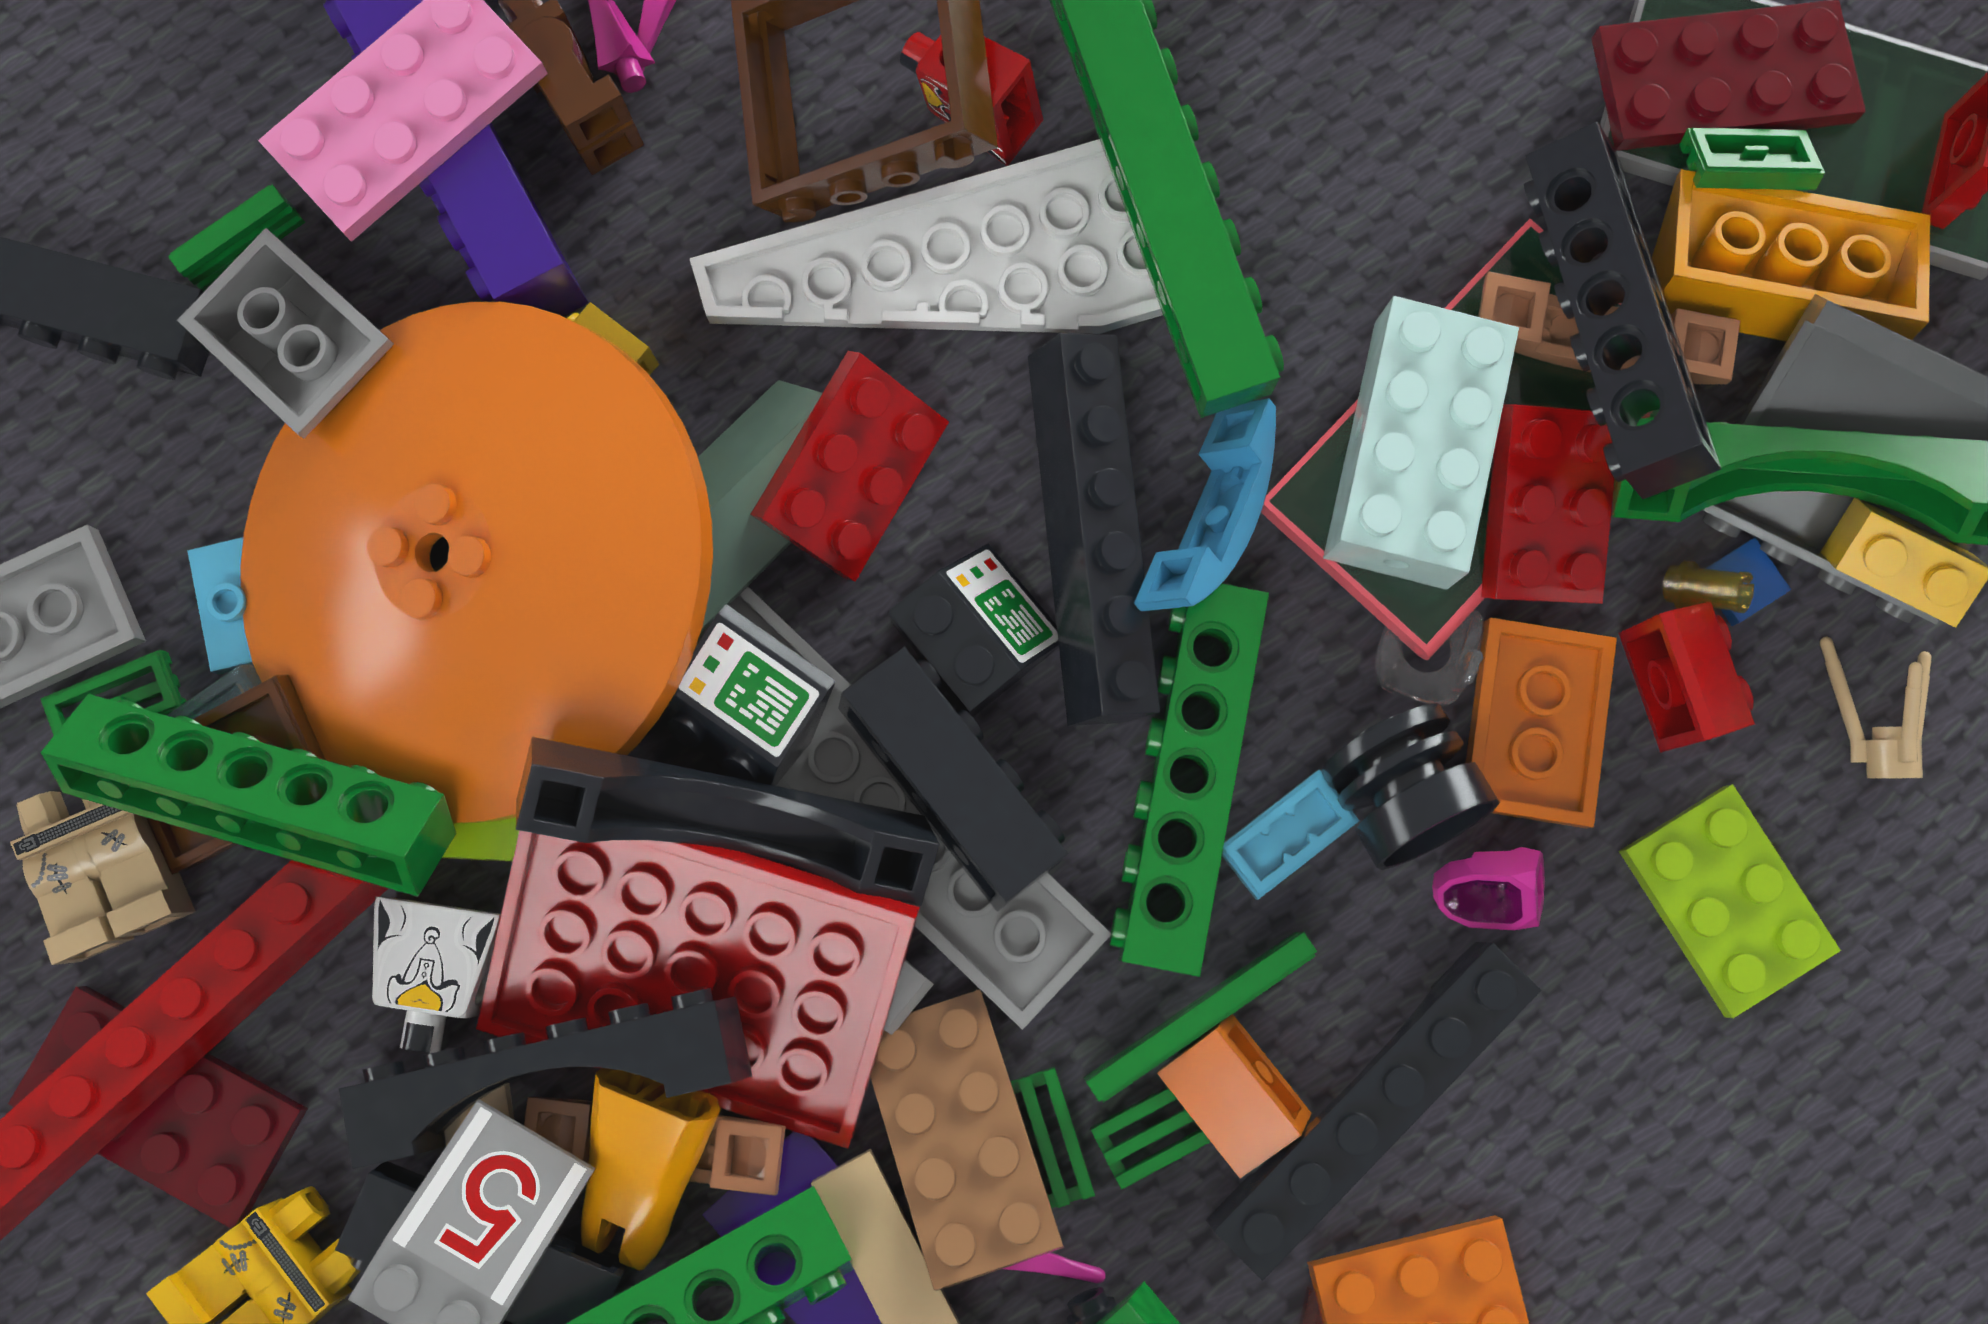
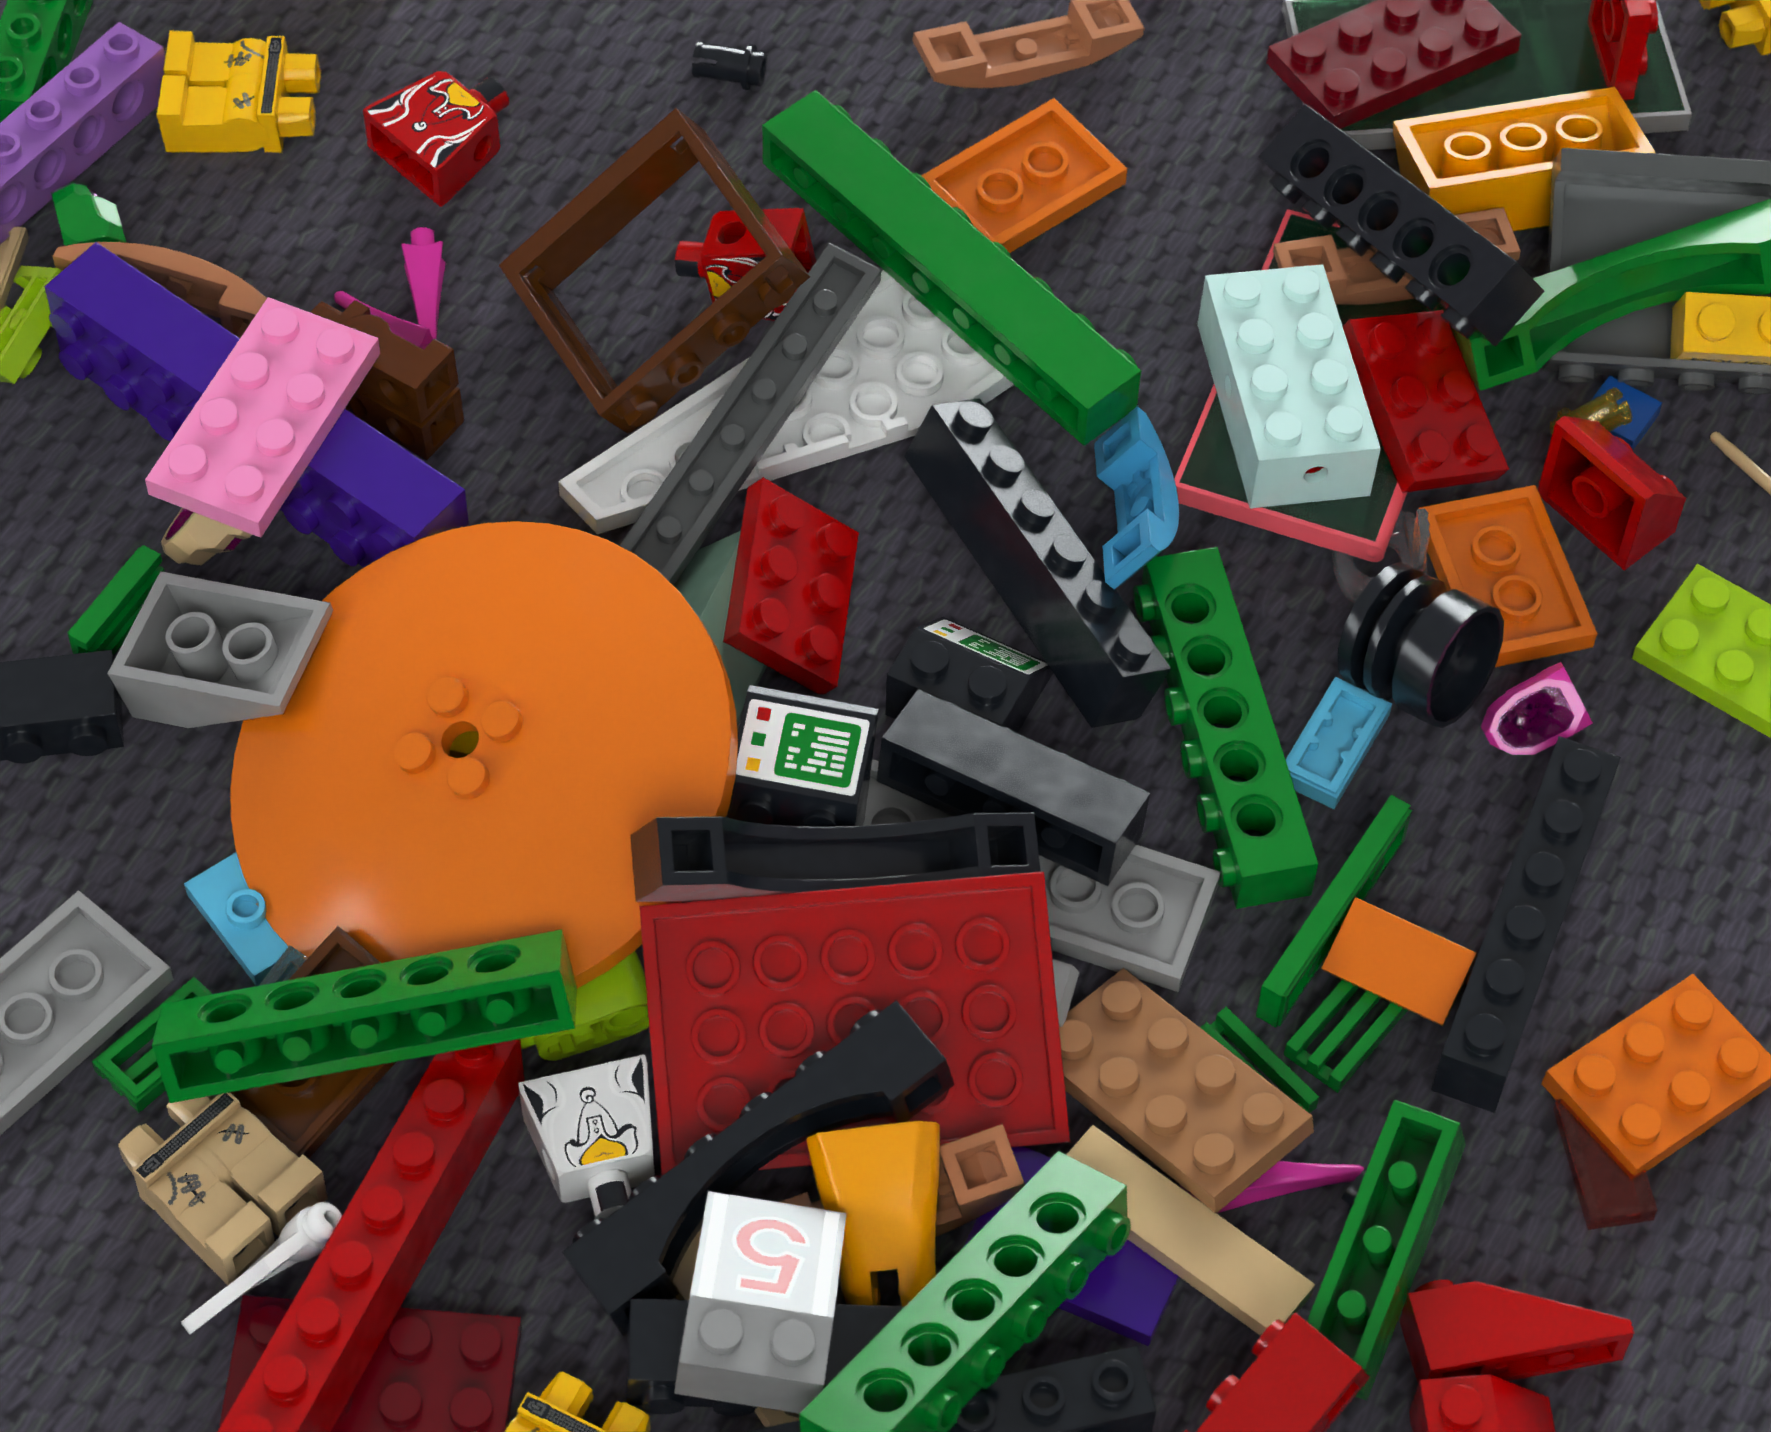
camera: 25 degrees left, 25 degrees down
(116, 972) = (299, 1241): none -> white arm
(872, 278) = (752, 412): none -> dark grey plate
(1284, 83) = (1028, 176): none -> orange plate
(1752, 158) = (1447, 94): green tile -> none

